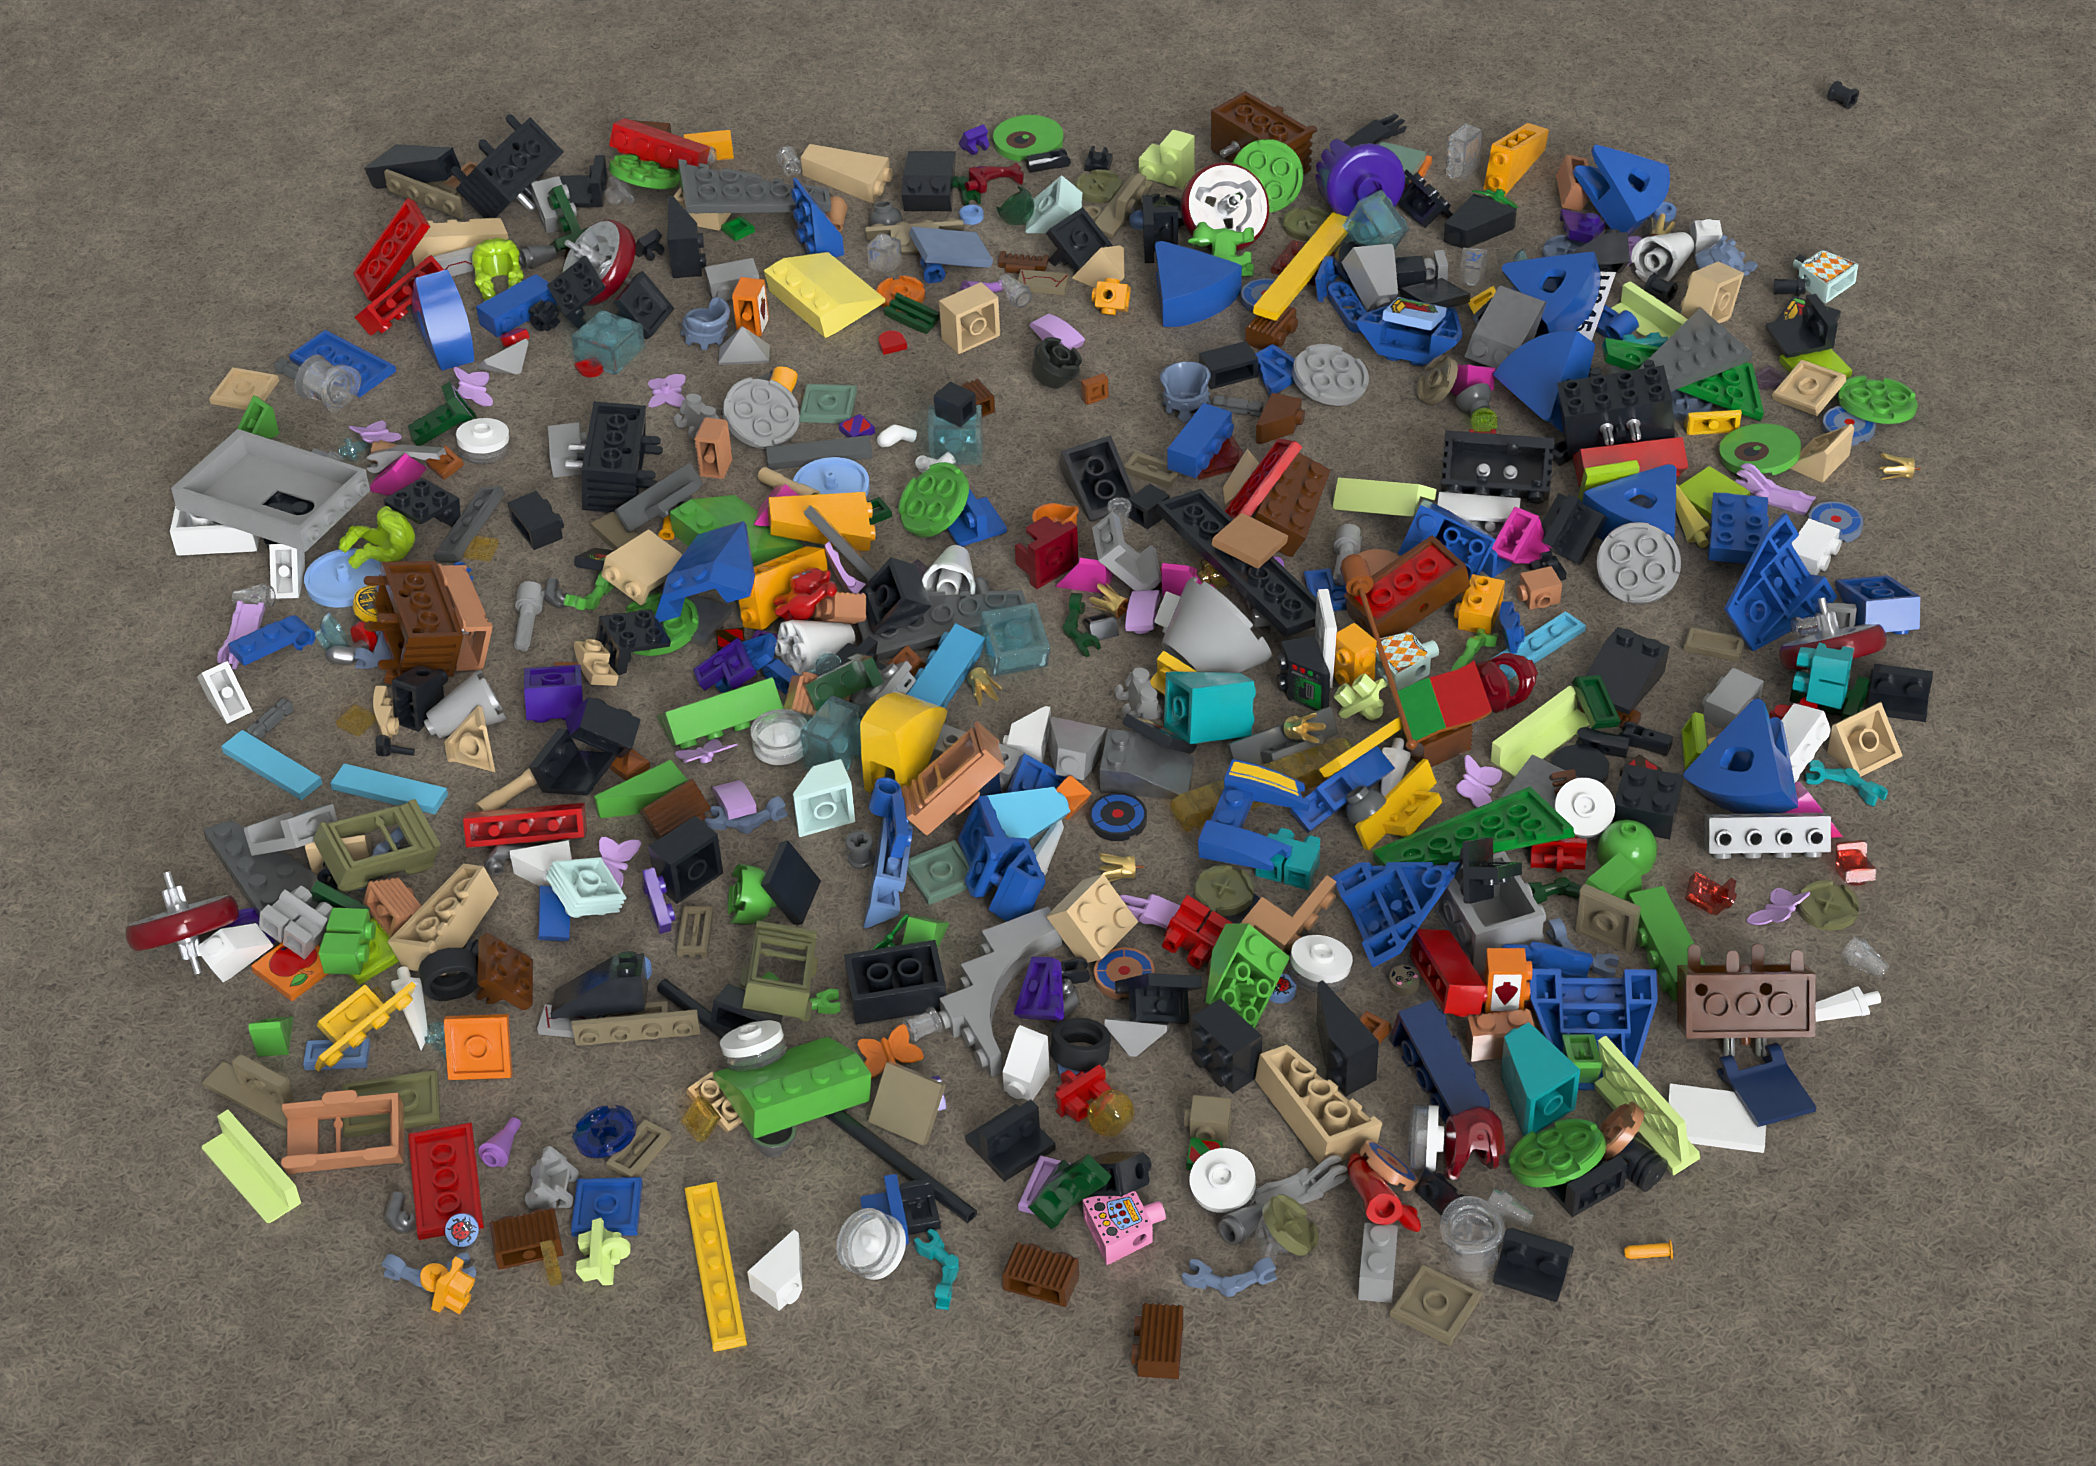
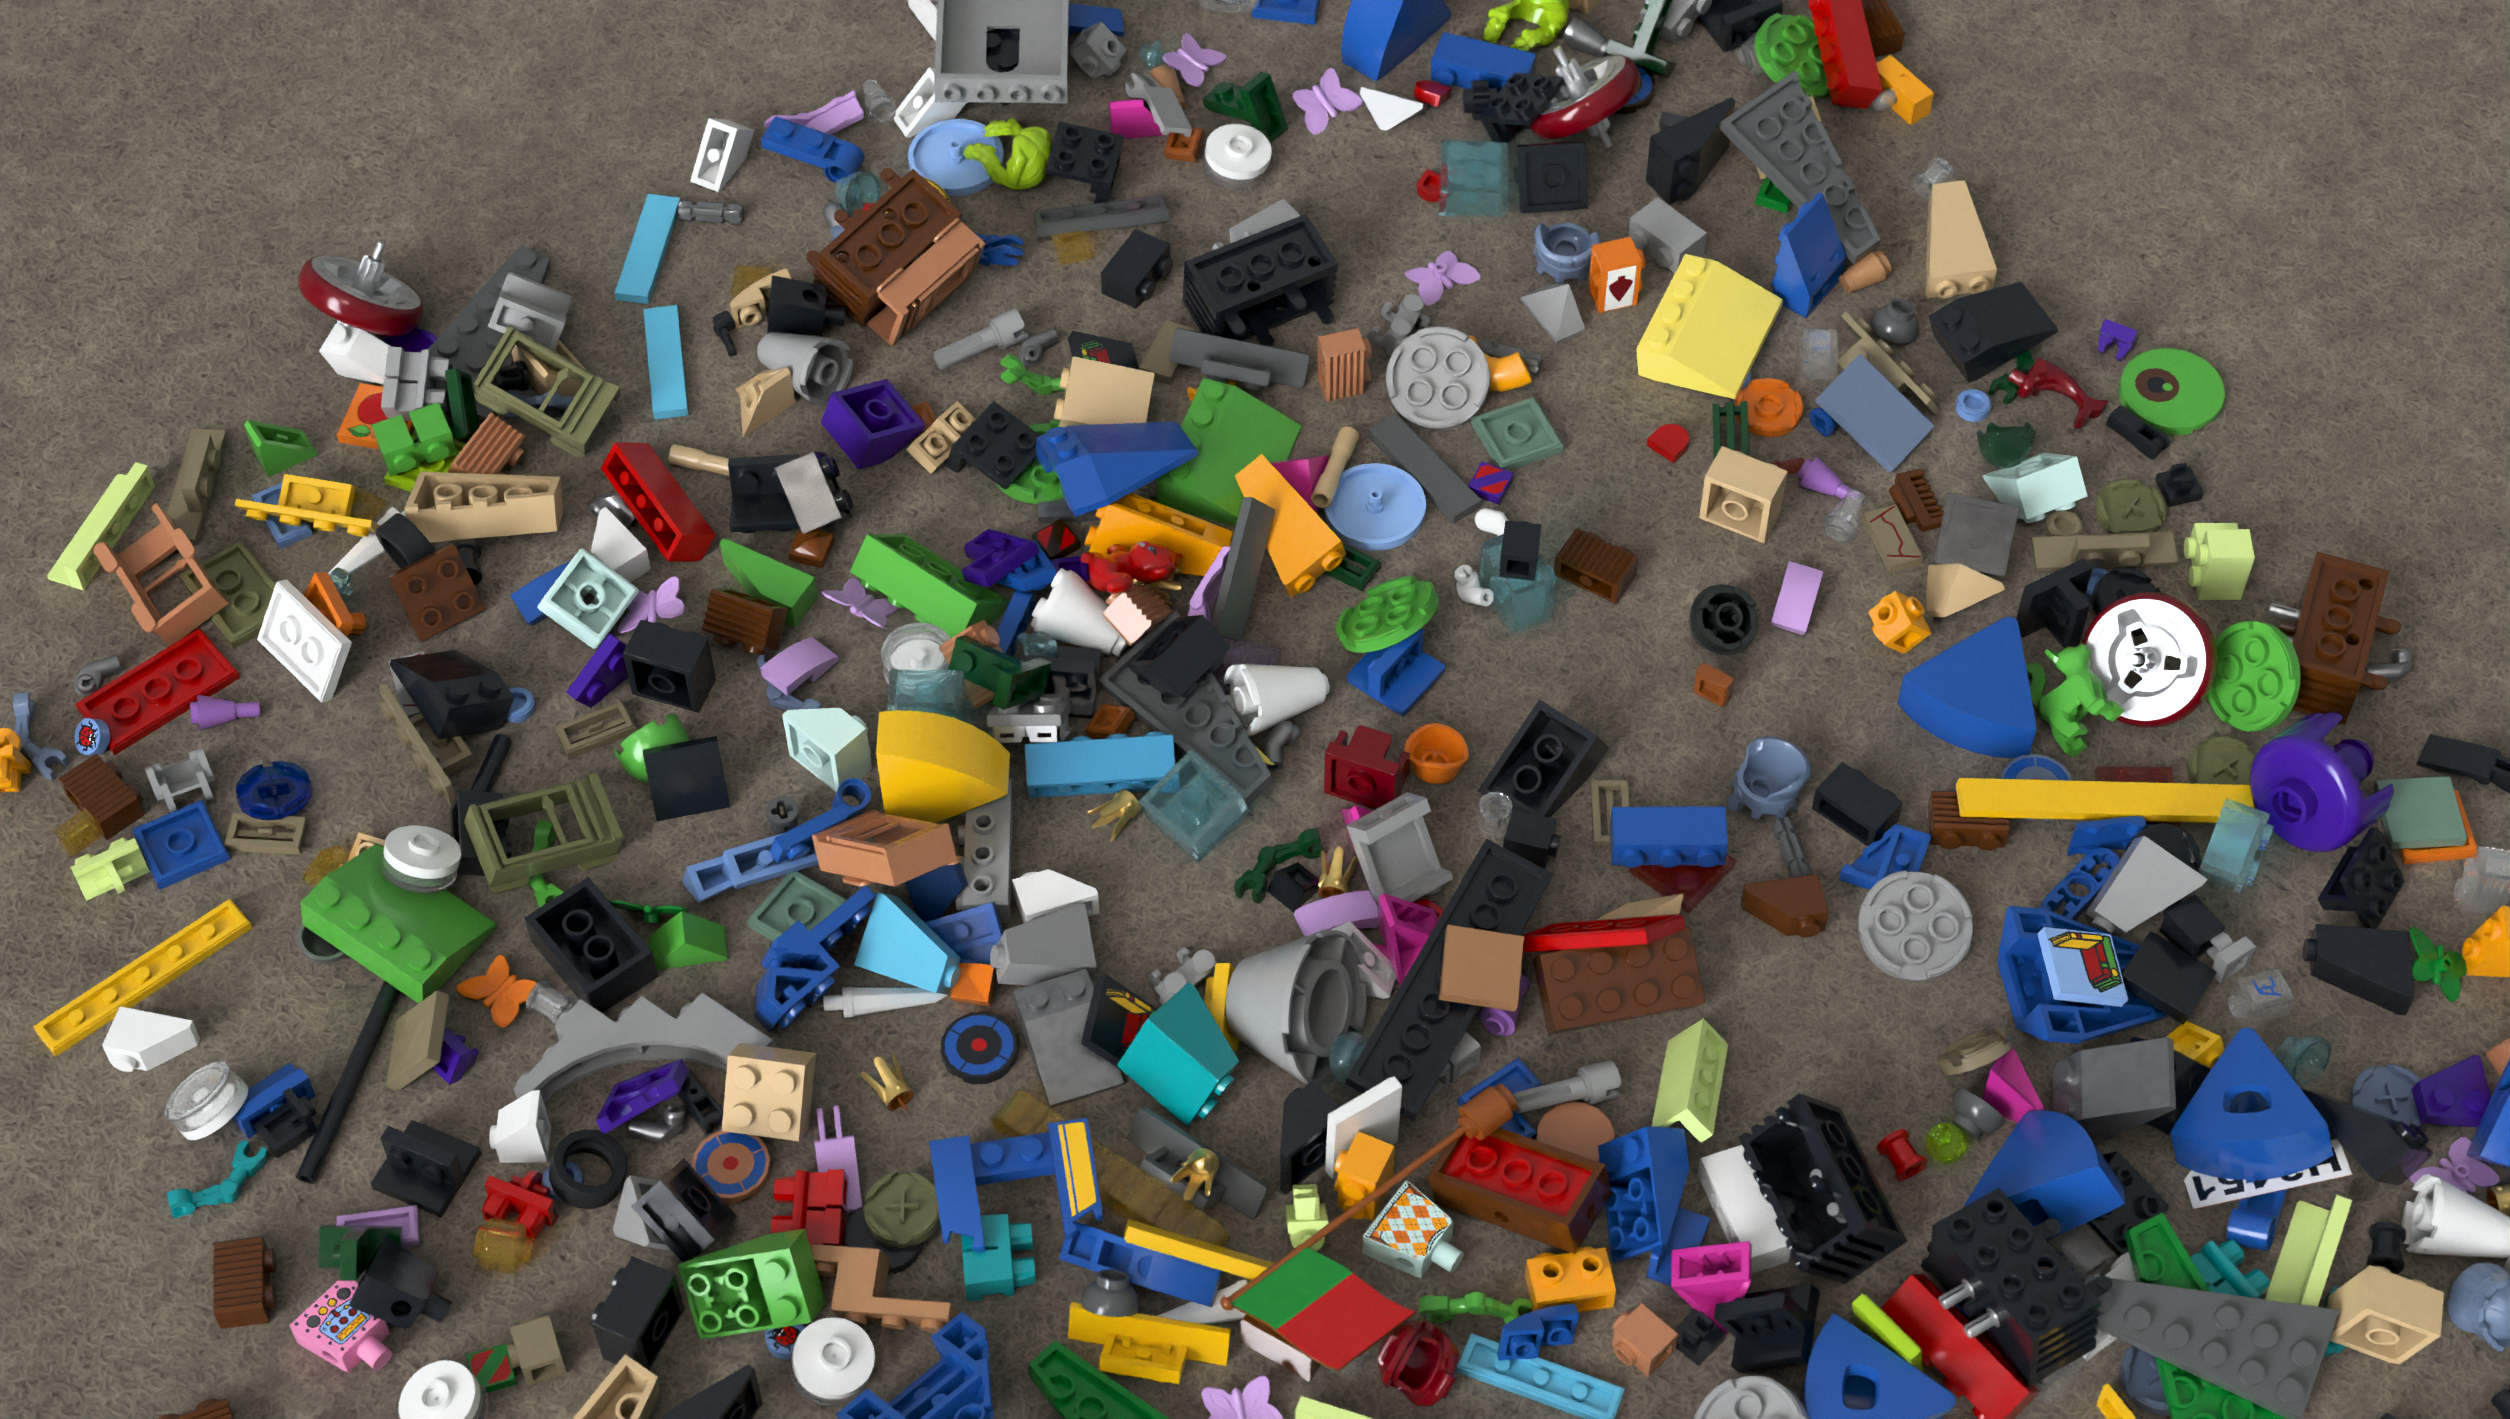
camera: 60 degrees right, 10 degrees up
(486, 1062) = (304, 640): none -> white tile
(1266, 631) = (1344, 1054): none -> clear light blue piece

